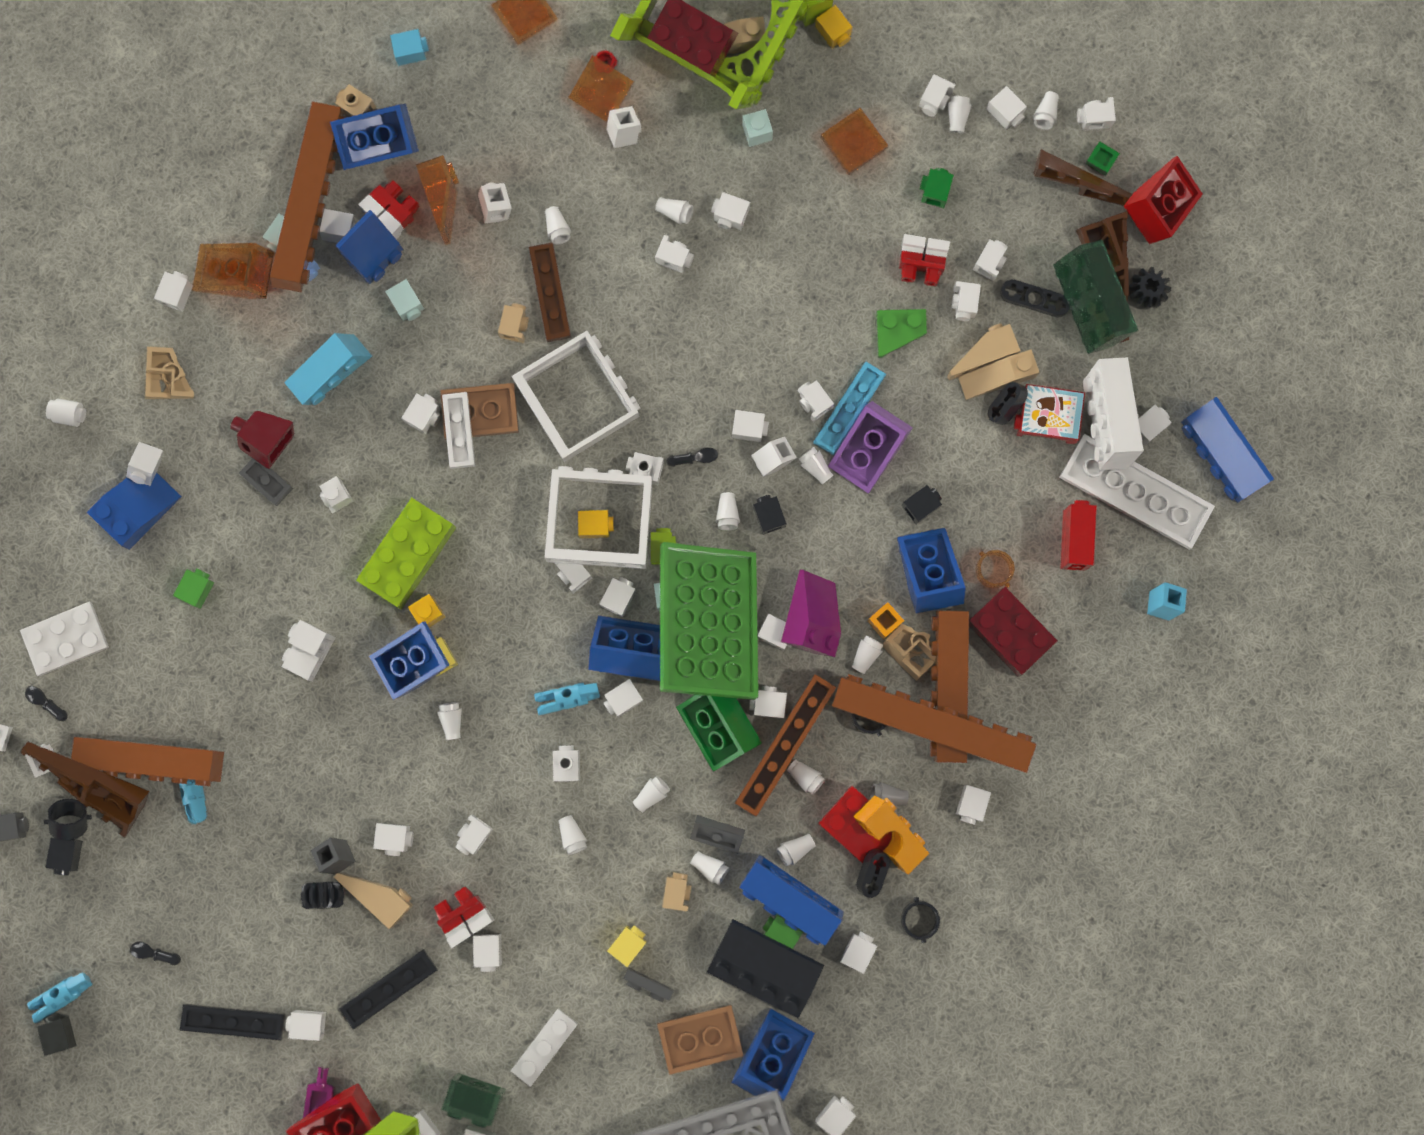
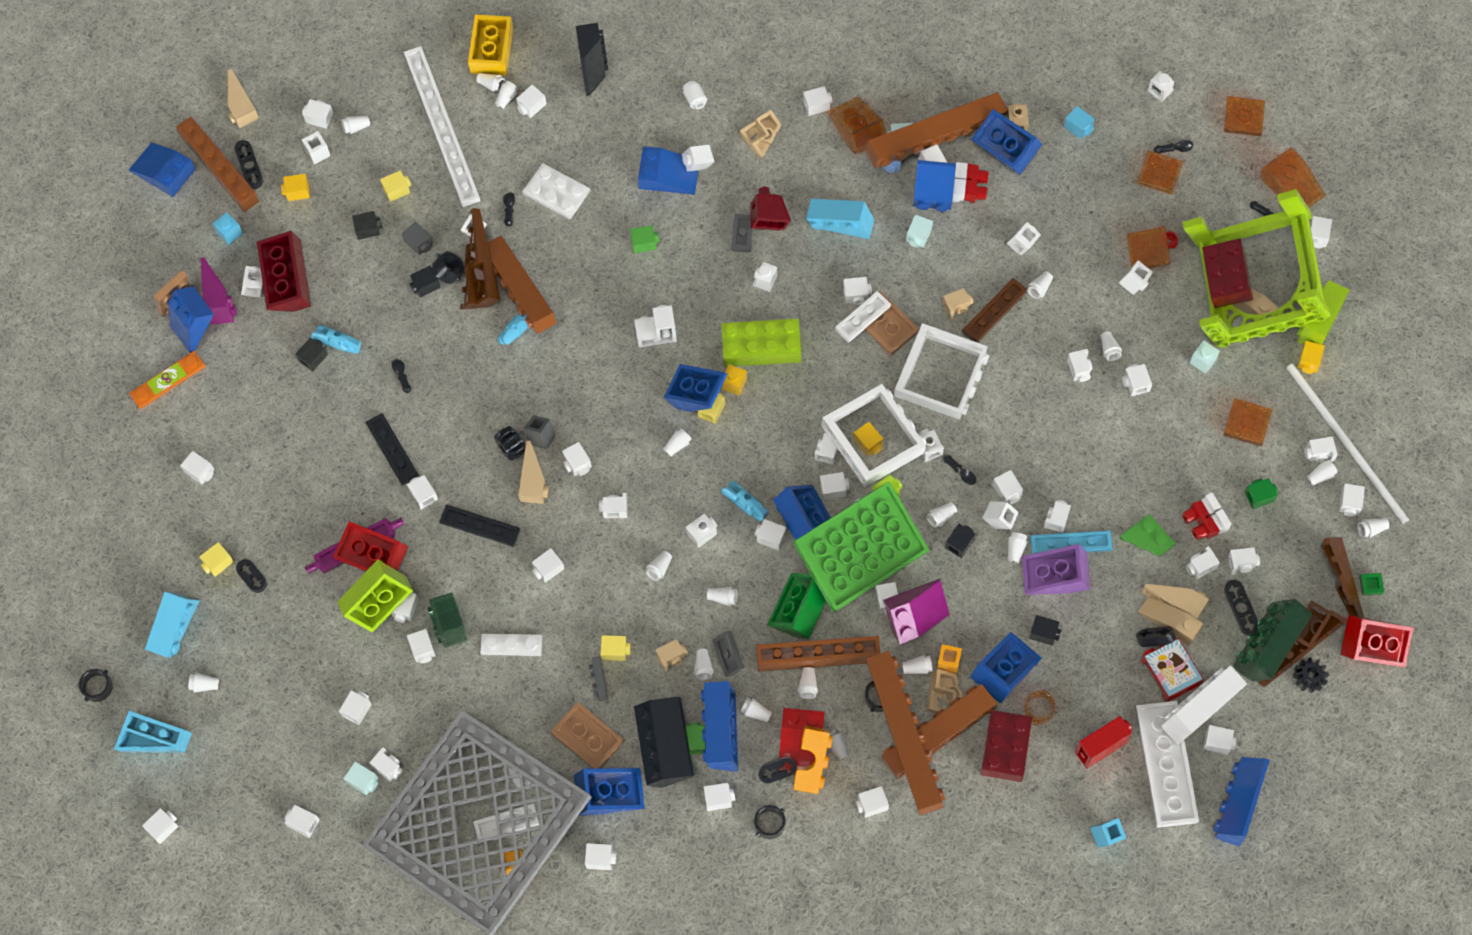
camera: 55 degrees right, 15 degrees down
(439, 185) = (1002, 203): clear orange slope -> none
(454, 924) = (558, 538): red hips -> none
(769, 703) = (837, 625): white brick -> none
(944, 65) = (1347, 443): none -> white piece
(1097, 115) = (1397, 559): white brick -> none

